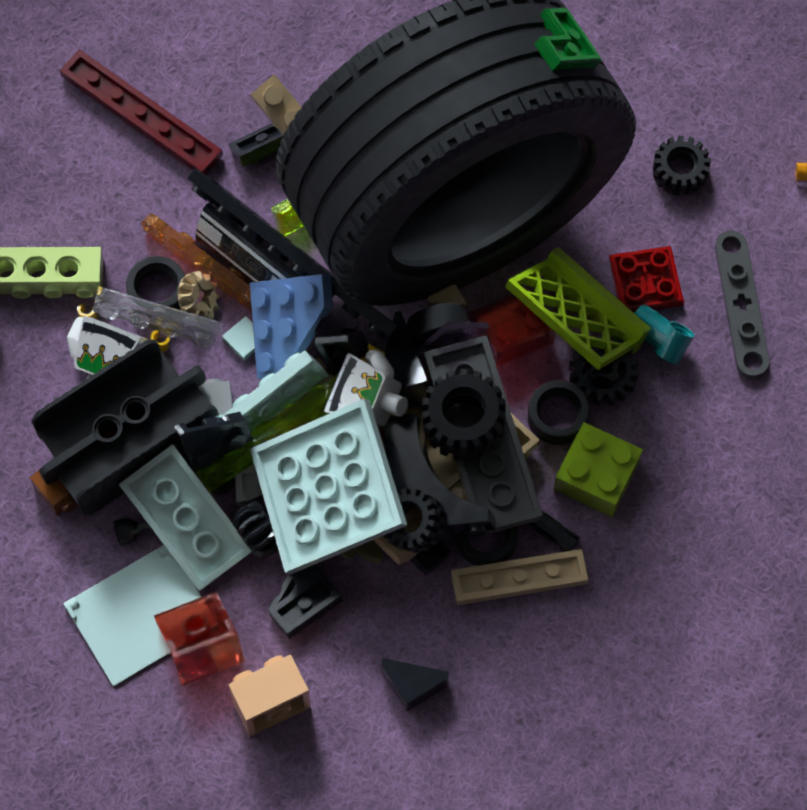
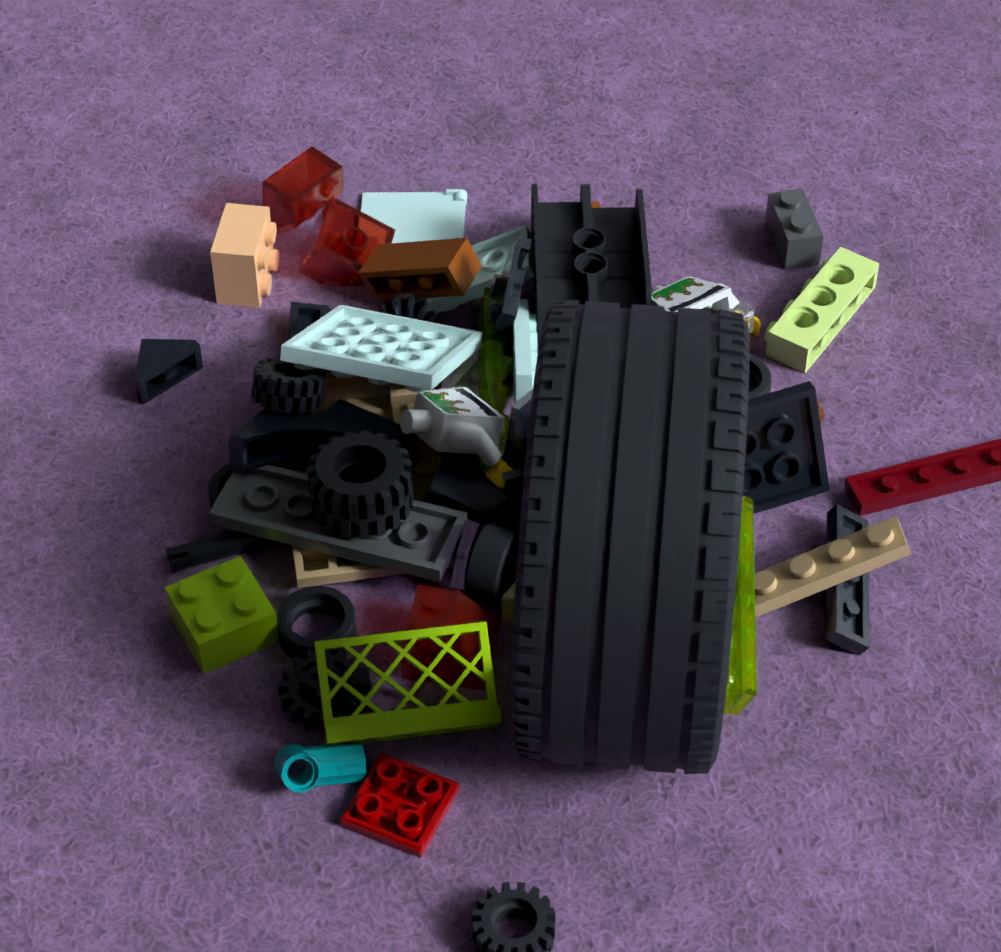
camera: 125 degrees right, 20 degrees down
(173, 697) = (302, 188): none -> clear red slope
(205, 543) = (420, 268): none -> dark orange brick
(519, 577) = (176, 501): tan plate -> none
(569, 44) = (604, 543): green tile -> none
(744, 326) = (317, 895): dark grey piece -> none

